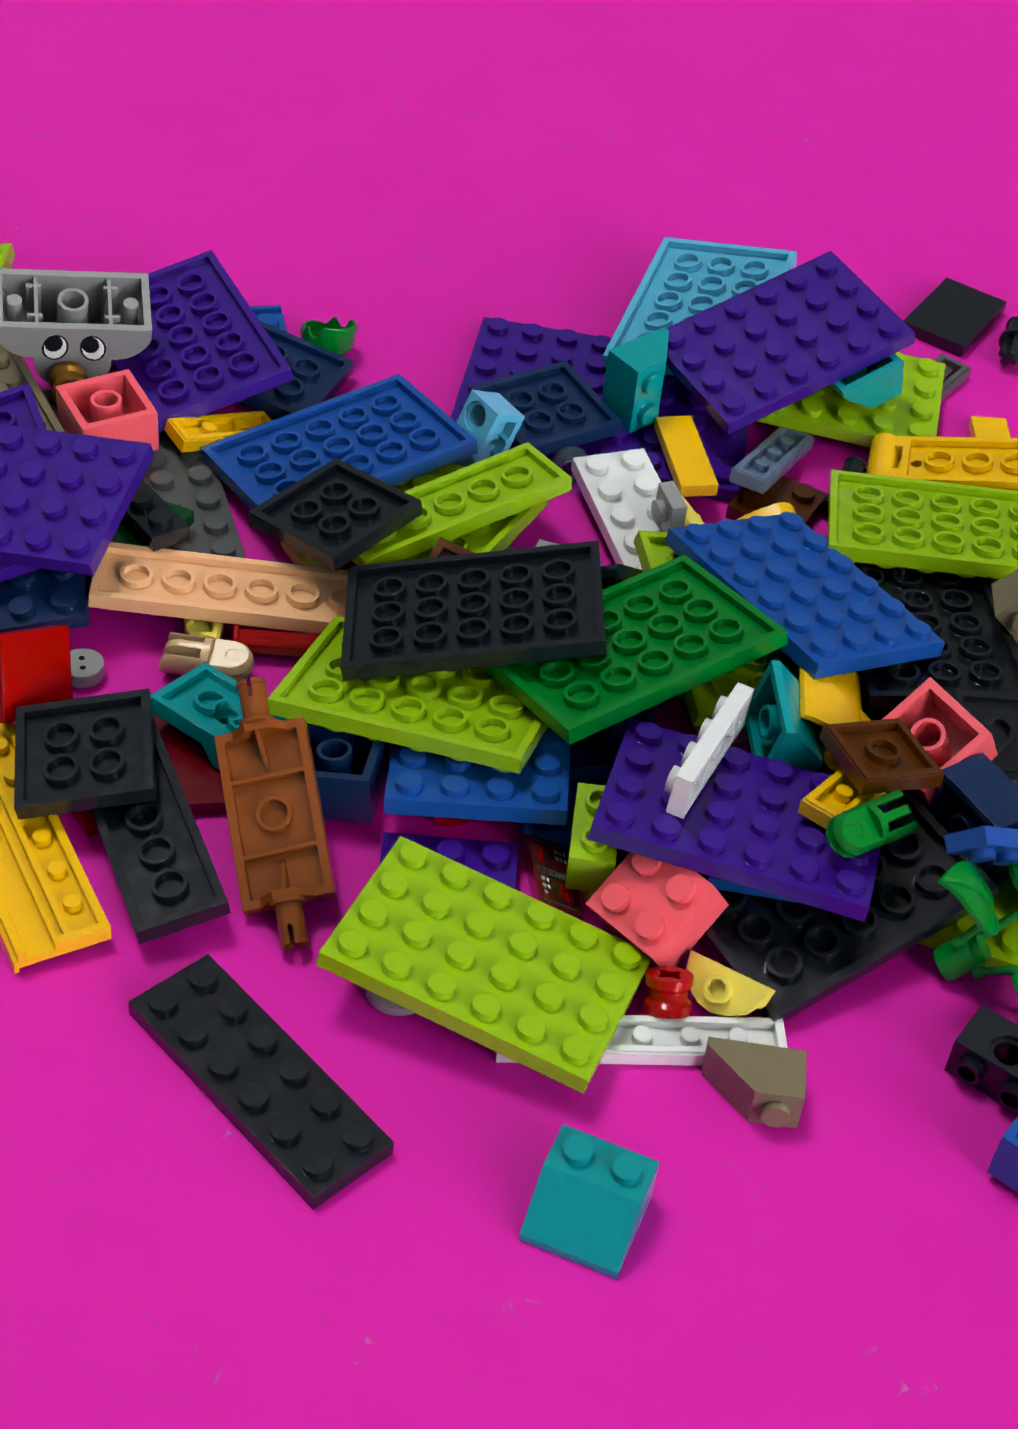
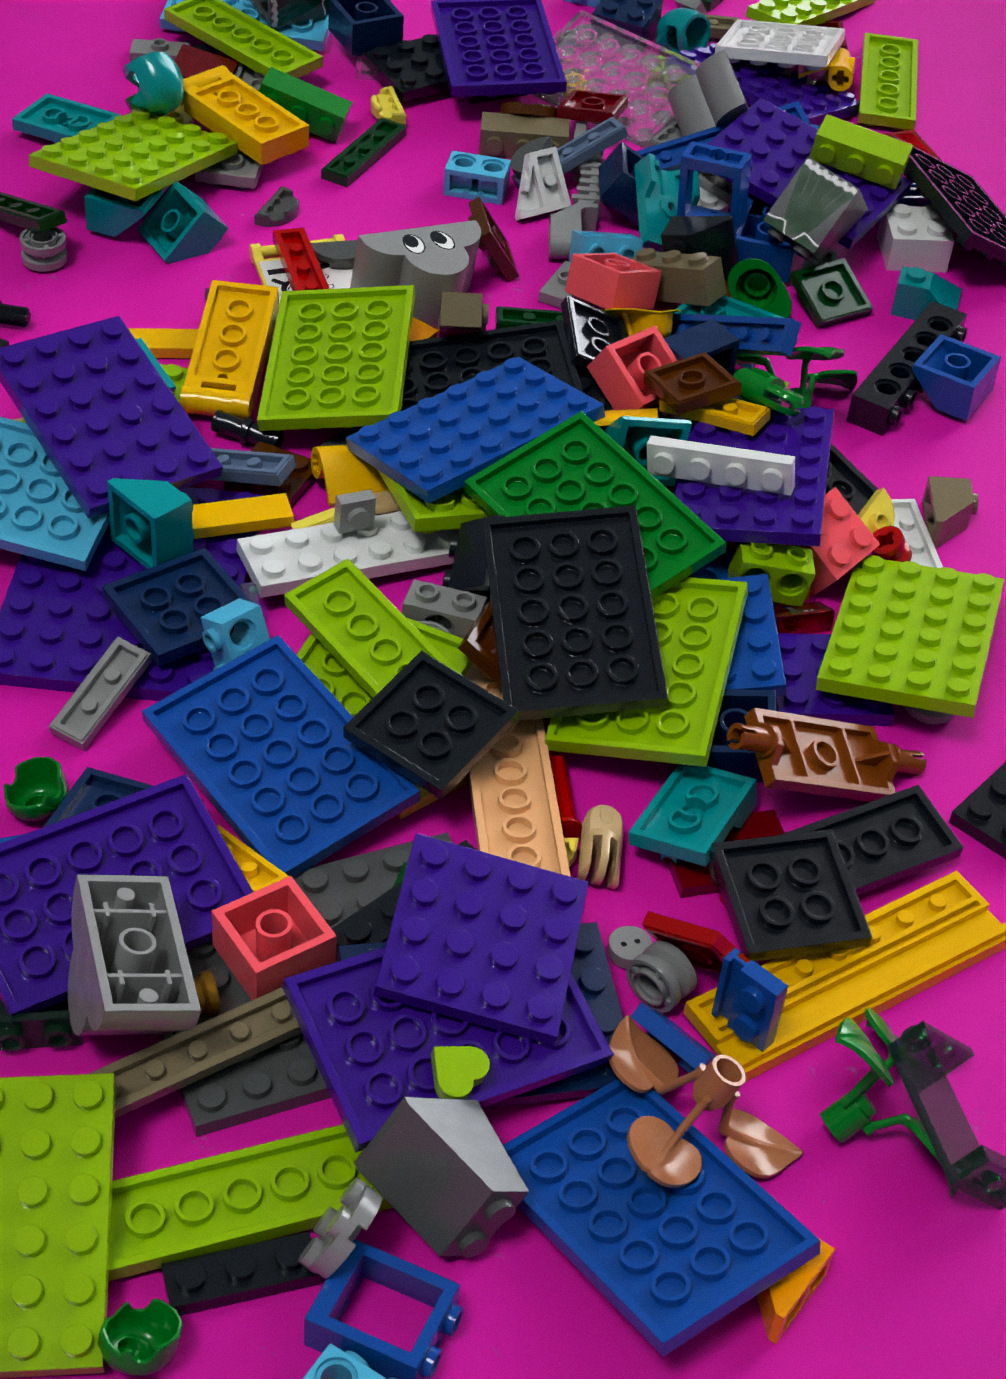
camera: 95 degrees left, 0 degrees up
(443, 370) = (100, 693): none -> light grey tile

